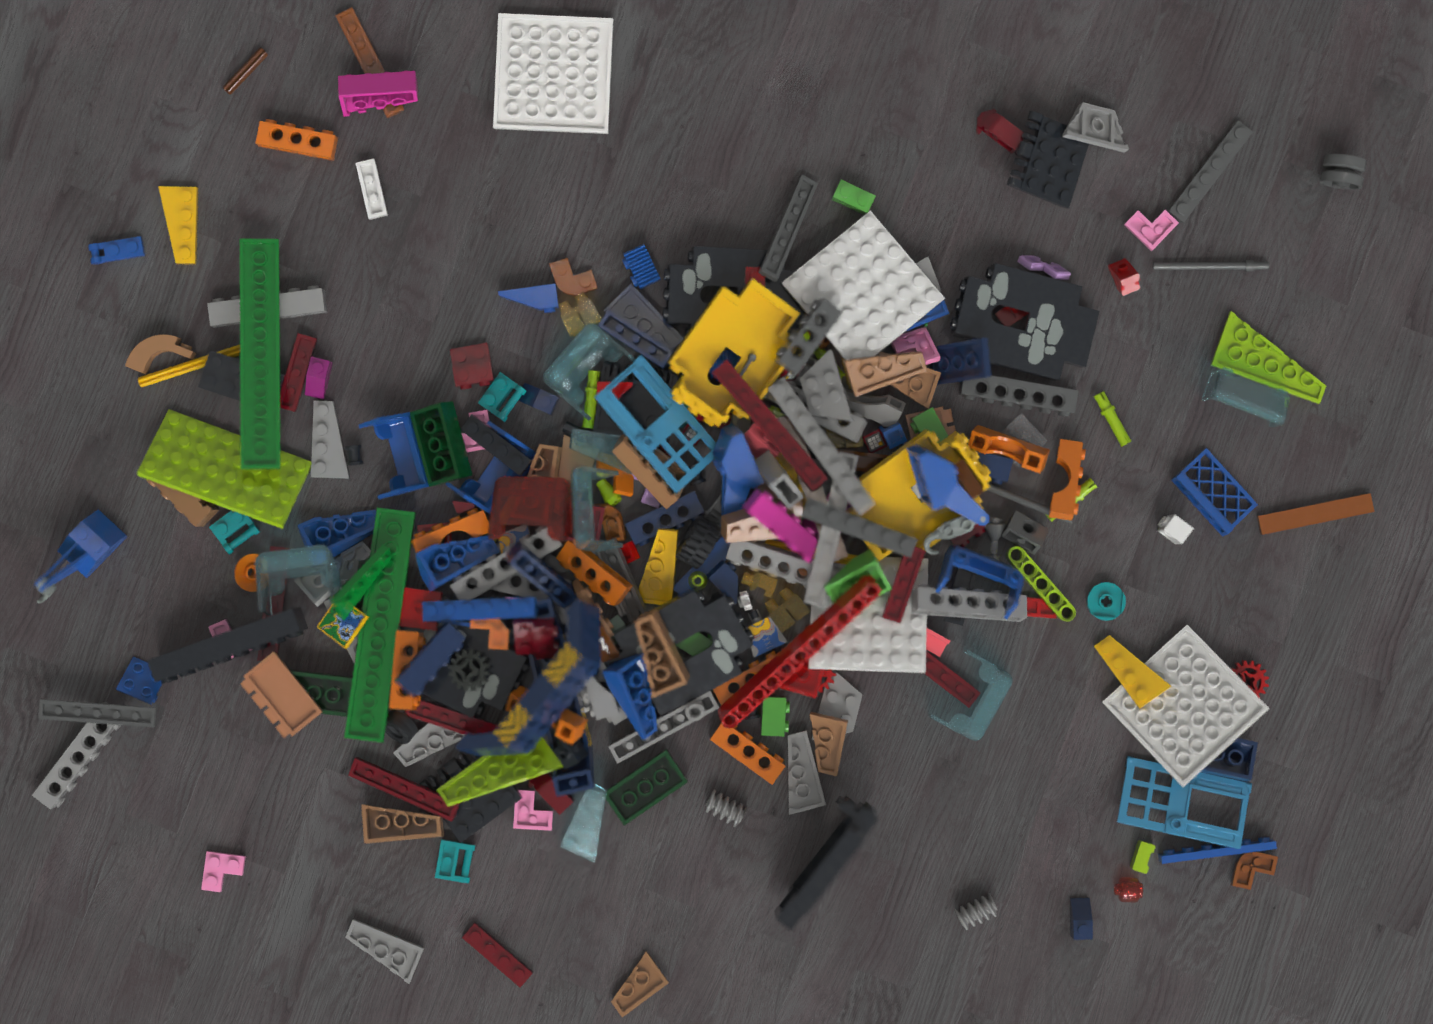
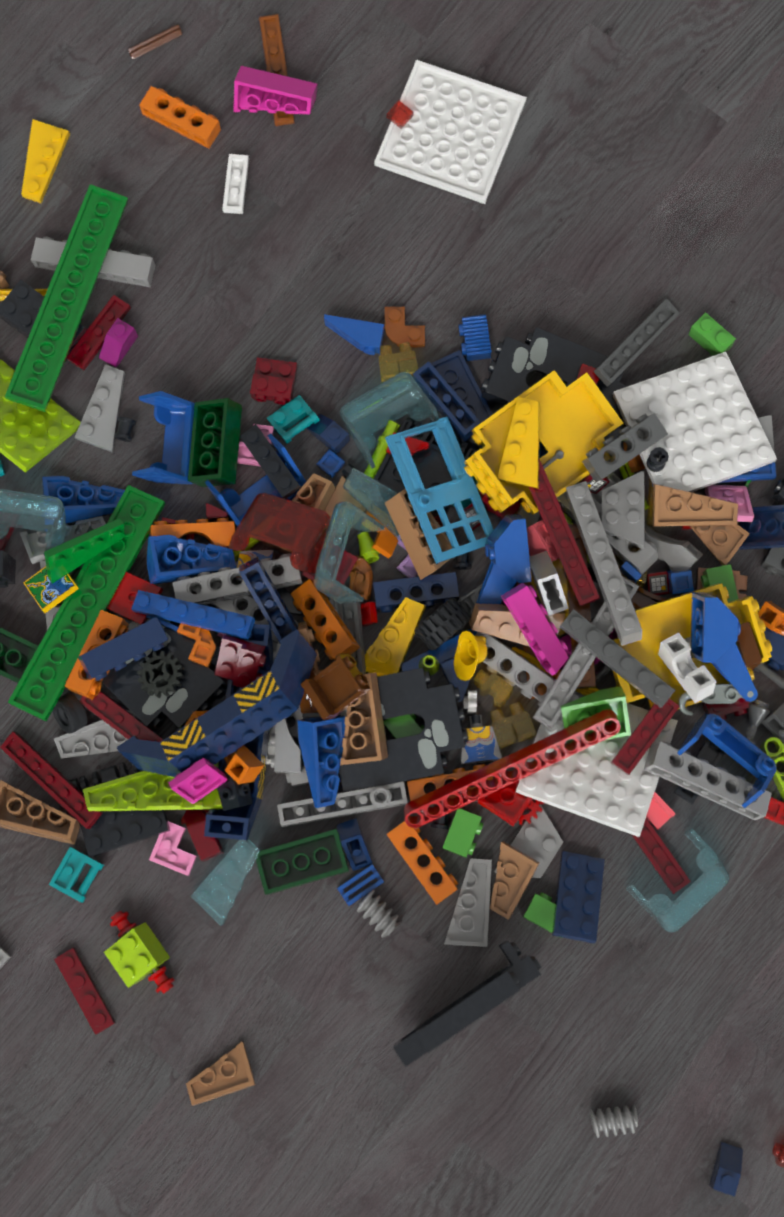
camera: 30 degrees right, 10 degrees down
(501, 74) = (400, 114): none -> clear red tile
(533, 910) = (138, 954): none -> lime brick
(536, 753) = (197, 781): none -> dark pink plate
(549, 425) = (330, 463): none -> blue tile
(627, 635) = (336, 687): none -> reddish brown panel
(684, 756) = (354, 844): none -> dark blue slope
(711, 775) = (375, 875): none -> blue tile
(718, 369) = (521, 451): none -> yellow wing
(730, 563) = (469, 653): none -> yellow piece
(843, 332) = (652, 462): none -> black bush
(847, 443) = (630, 572): none -> blue tile
(869, 761) = (541, 911): none -> bright green brick
(889, 738) = (578, 897): none -> dark blue plate
(929, 524) = (677, 657): none -> white arch

